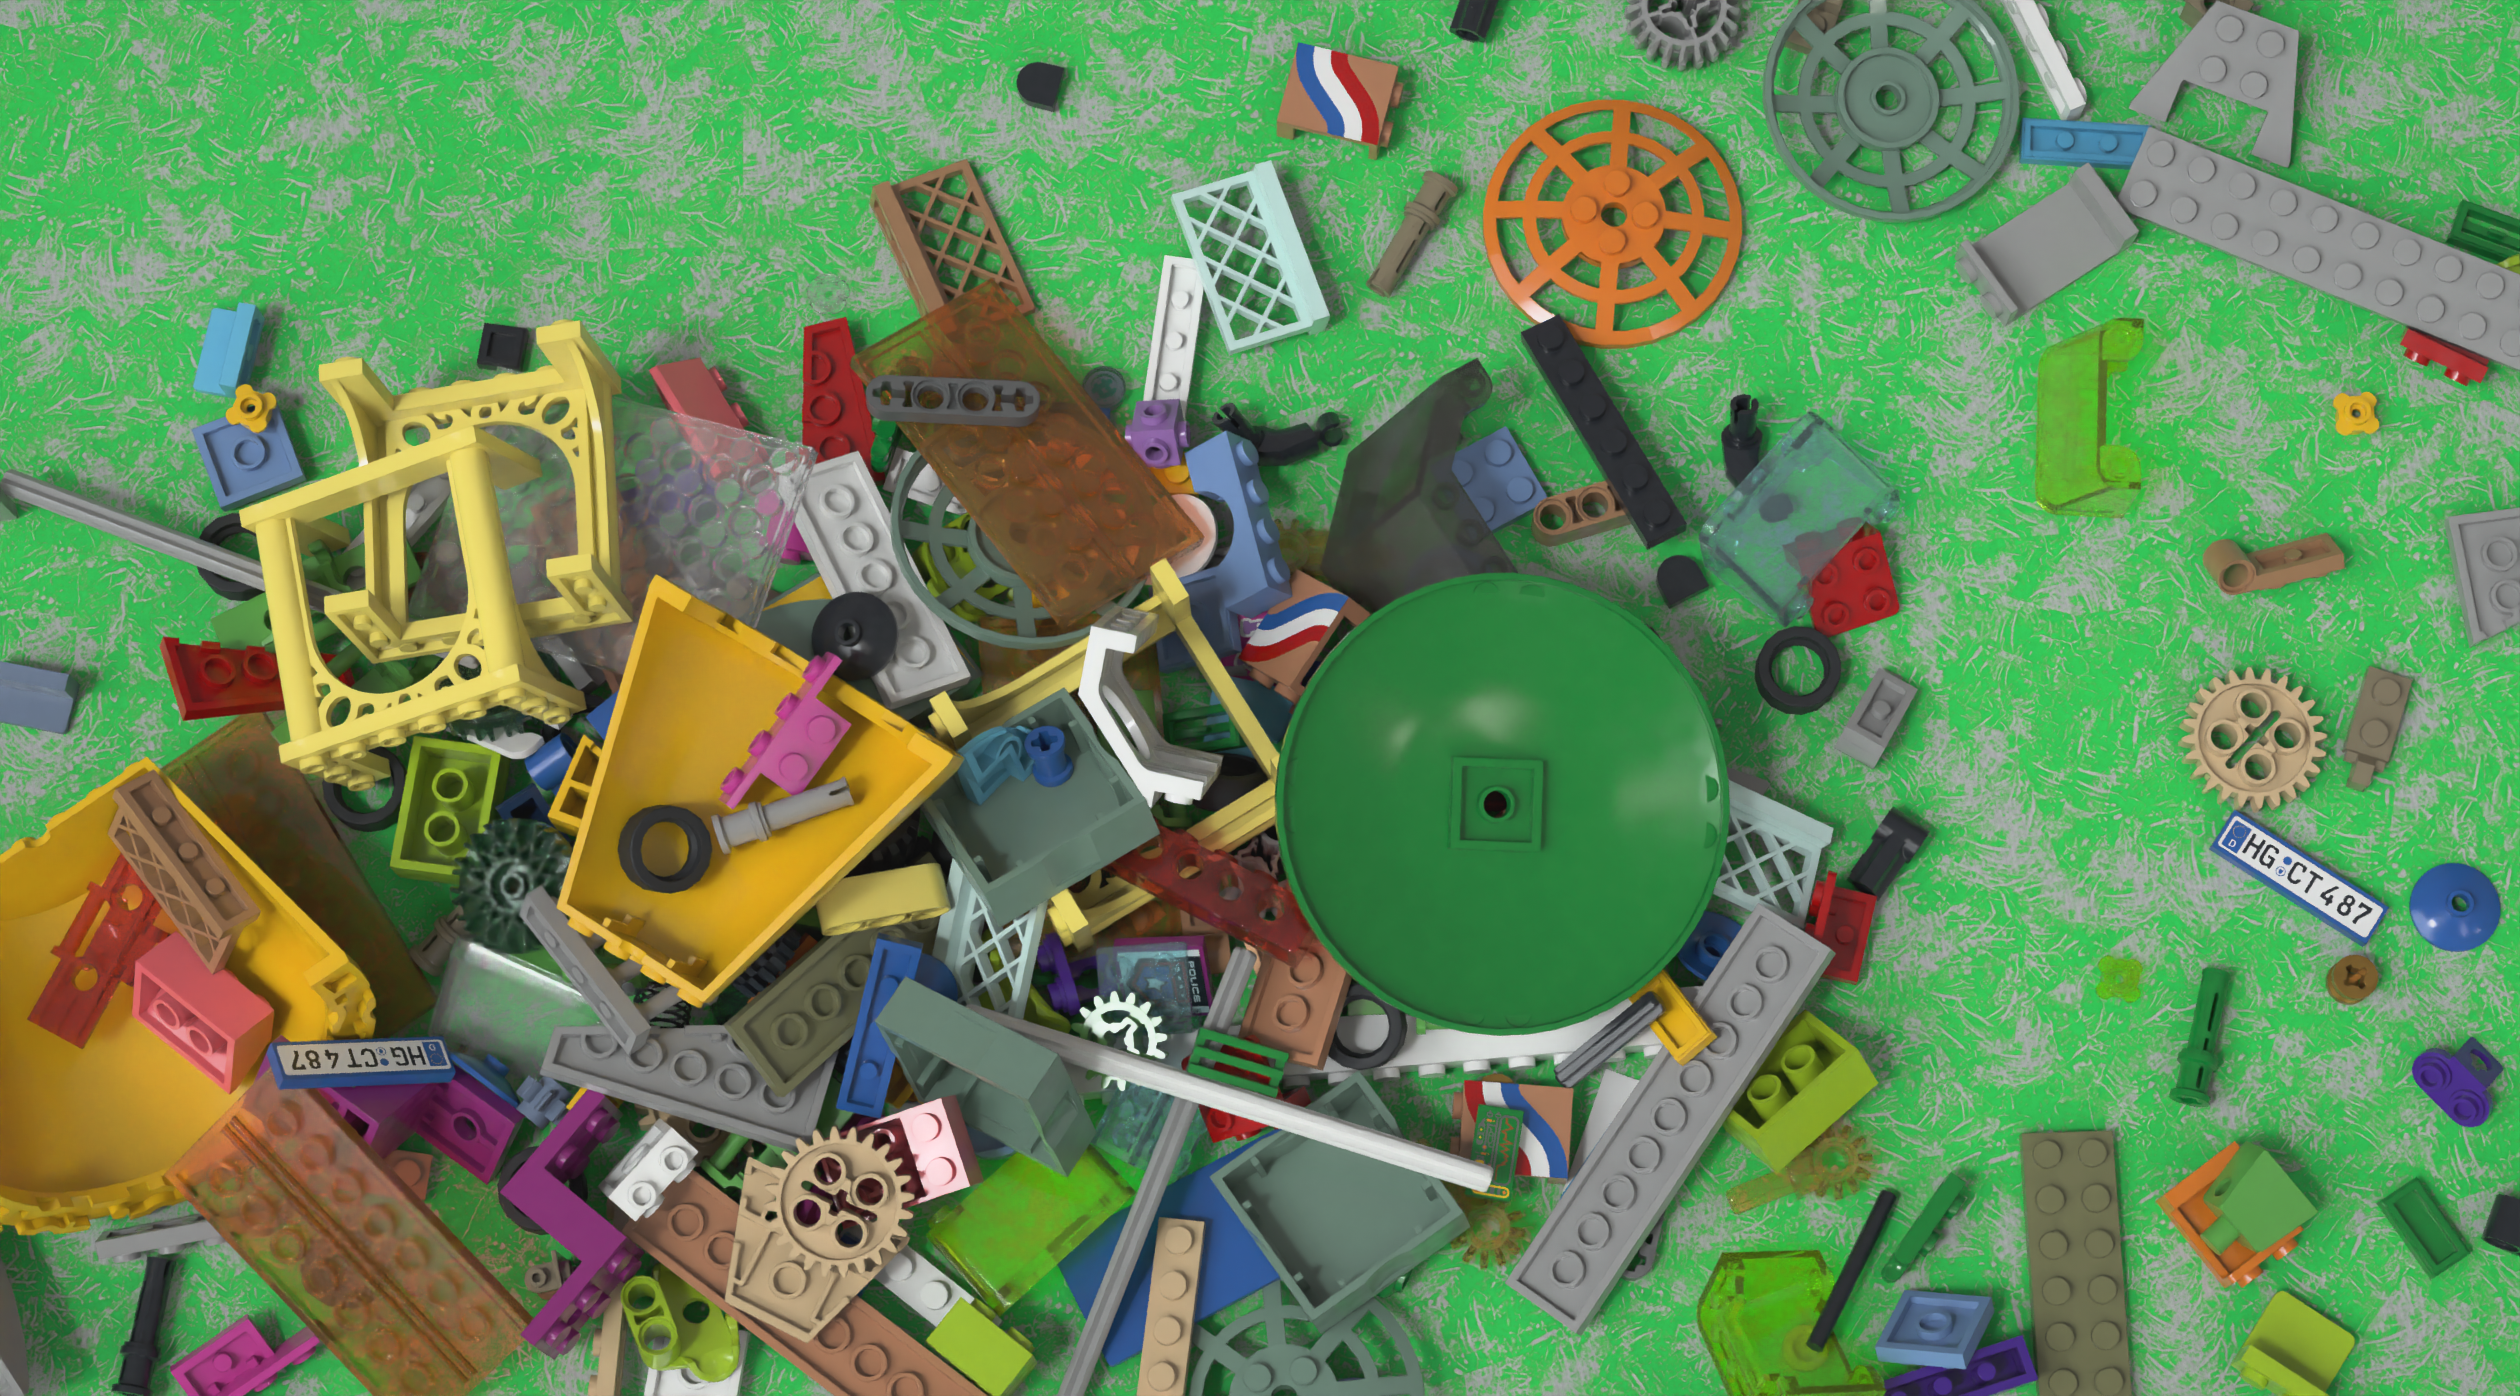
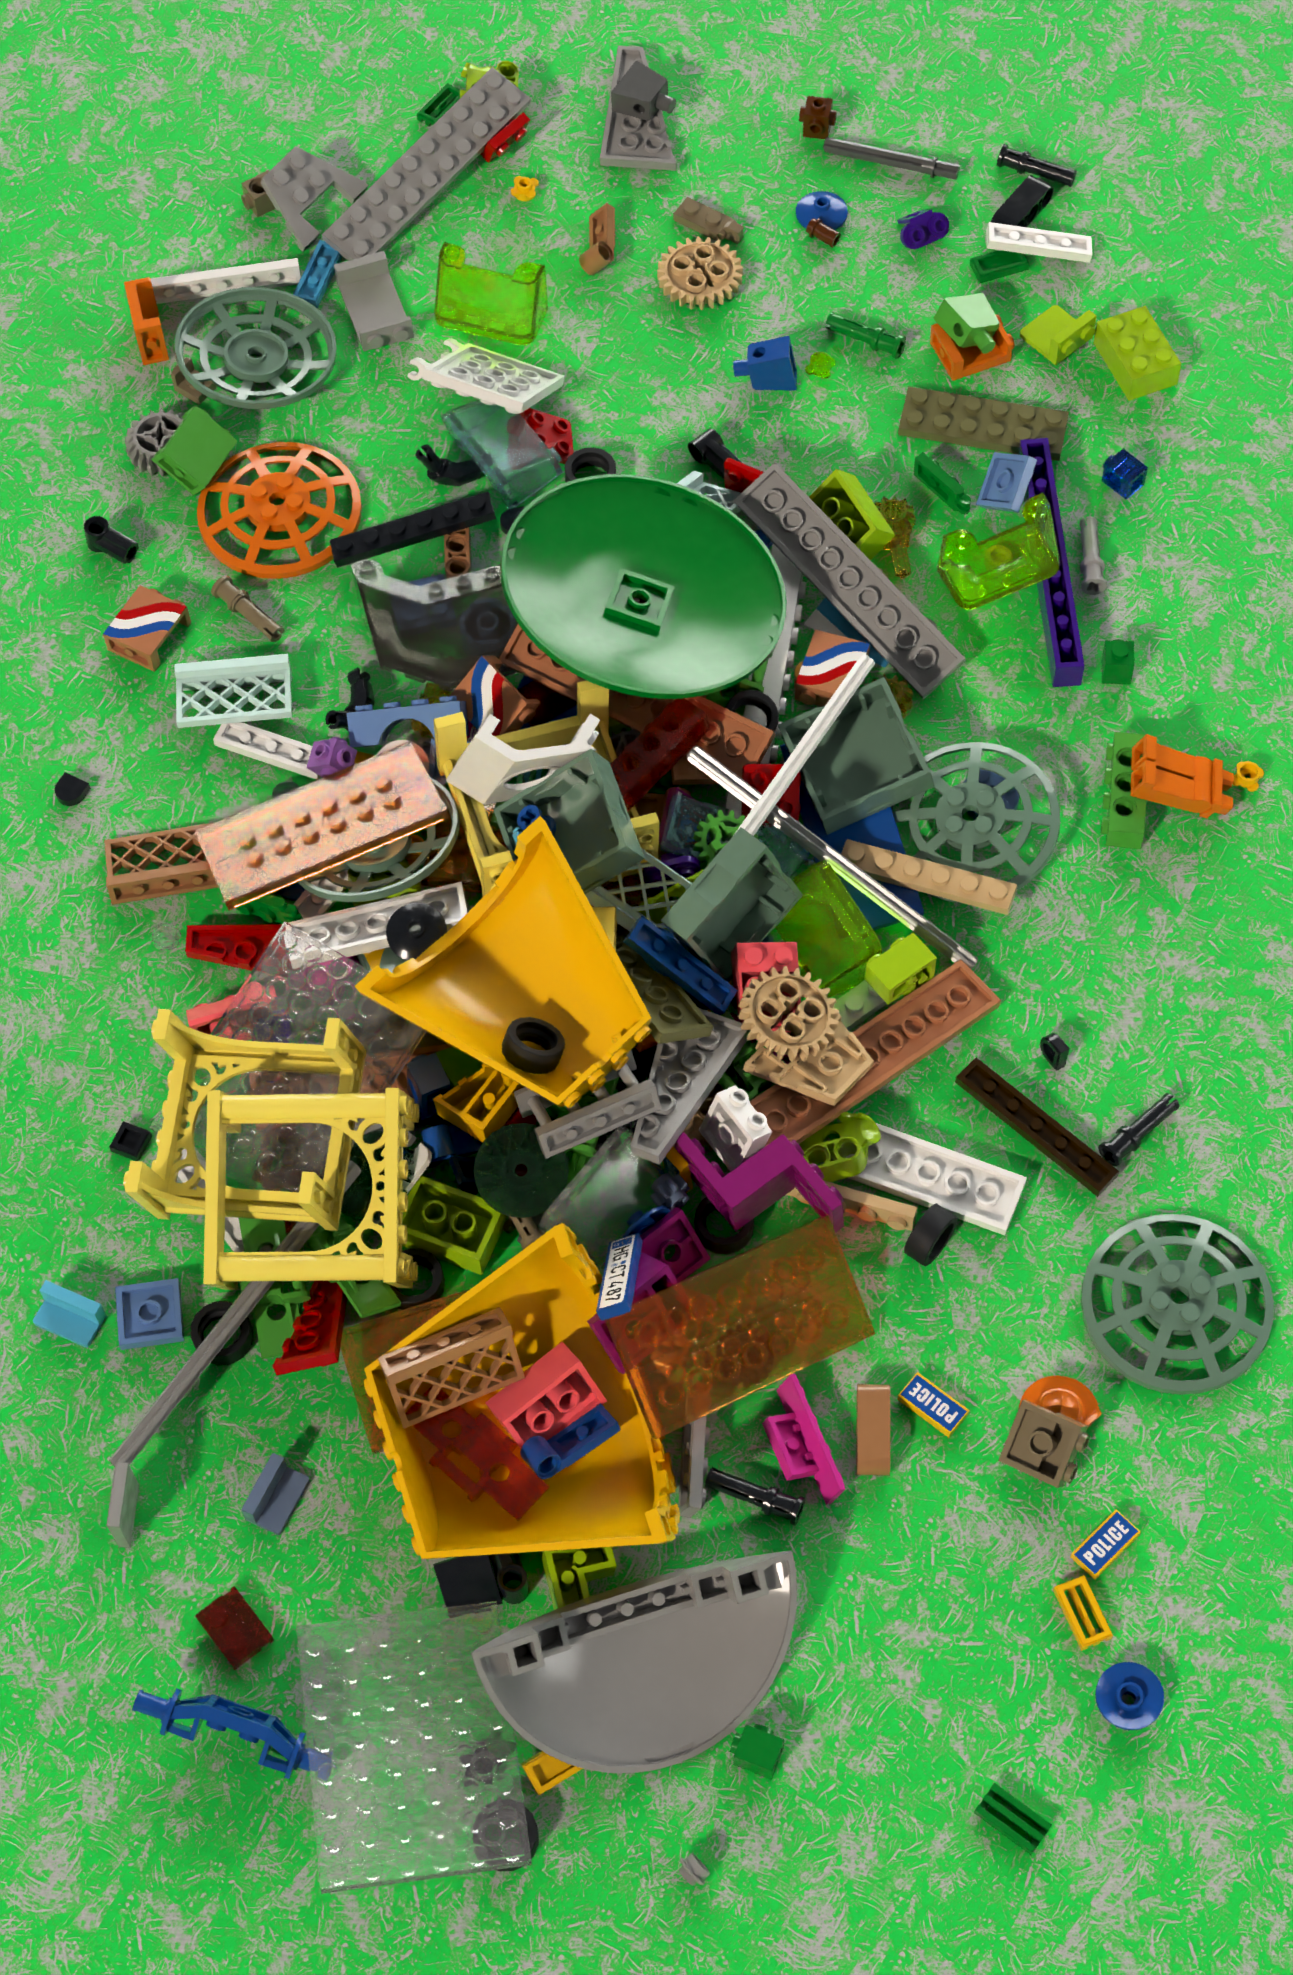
camera: 75 degrees left, 15 degrees down
(154, 1060) = (570, 1444): none -> blue plate
(258, 419) = (123, 1305): yellow plate -> none
(550, 1276) = (790, 1212): dark tan hinge -> none
(760, 820) = (530, 986): light grey pin -> none
(796, 741) = (481, 960): dark pink bracket -> none
(953, 392) = (273, 846): dark grey beam -> none
(1275, 1073) = (770, 757): green tile -> none
(1496, 1145) = (834, 669): green tile -> none
(1610, 1039) = (795, 601): axle -> none
(1668, 69) = (195, 450): none -> bright green panel
(1681, 1026) = (796, 558): yellow tile -> none
(1851, 1271) = (960, 521): black bar -> none
(1876, 718) = (638, 442): light grey plate -> none
(1921, 465) = (488, 376): none -> white plate
(2081, 897) = (769, 365): none -> blue torso
(2298, 878) = (785, 273): tile -> none
(2344, 986) = (851, 260): pearl gold wheel -> none
(2401, 919) = (823, 232): none -> reddish brown pin
(2475, 1285) = (1039, 242): none -> white plate

